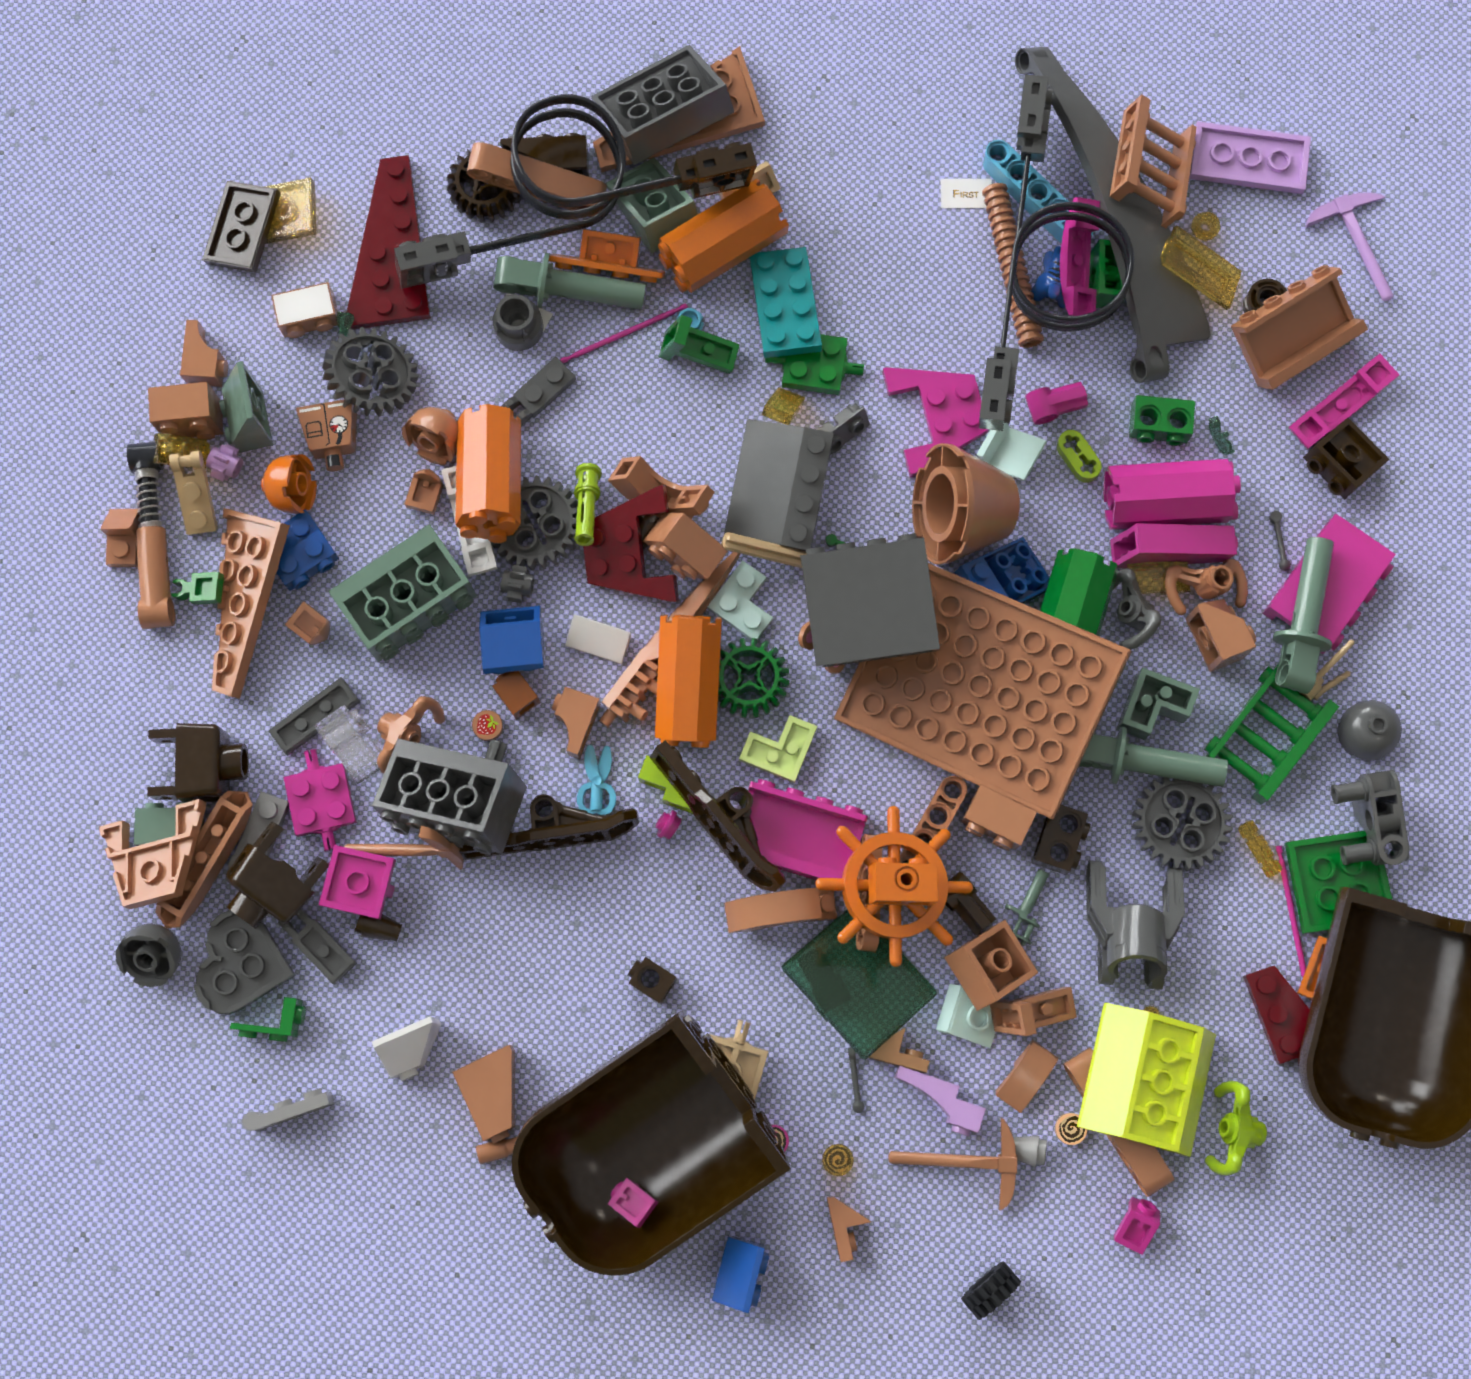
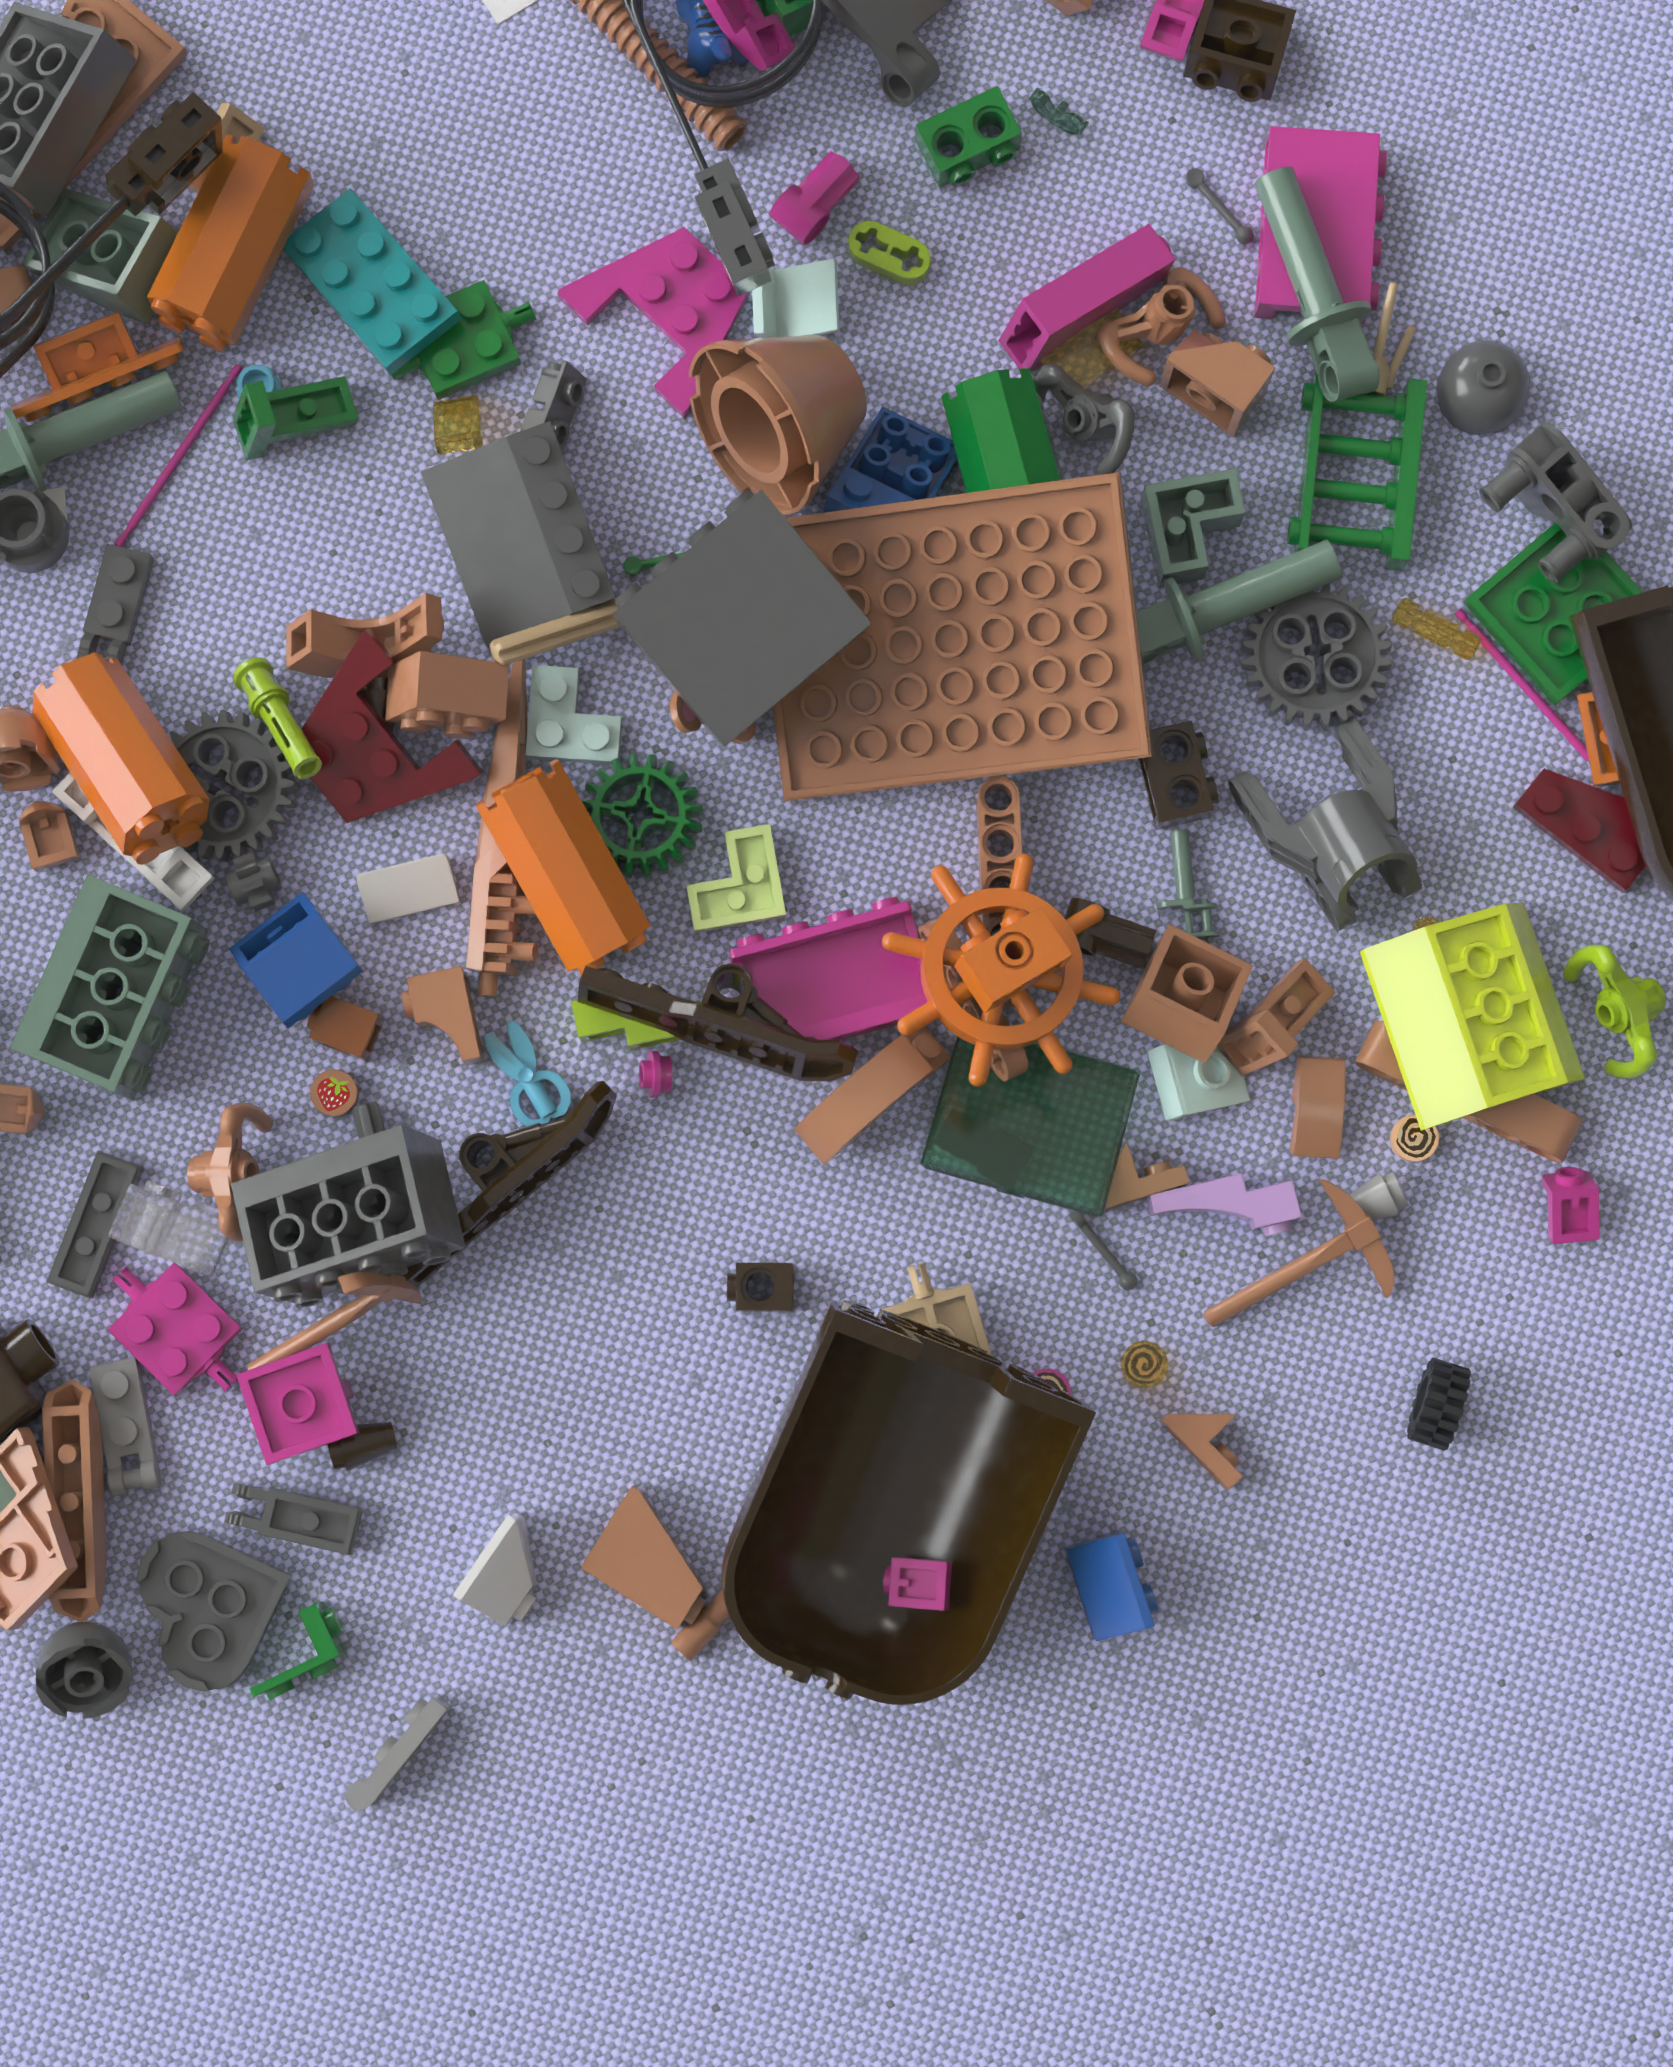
camera: 30 degrees left, 5 degrees up
(268, 883) = (184, 1479): dark brown piece -> none
(998, 818) = (1079, 798): nougat brick -> none
(1171, 493) = (1041, 230): dark pink brick -> none

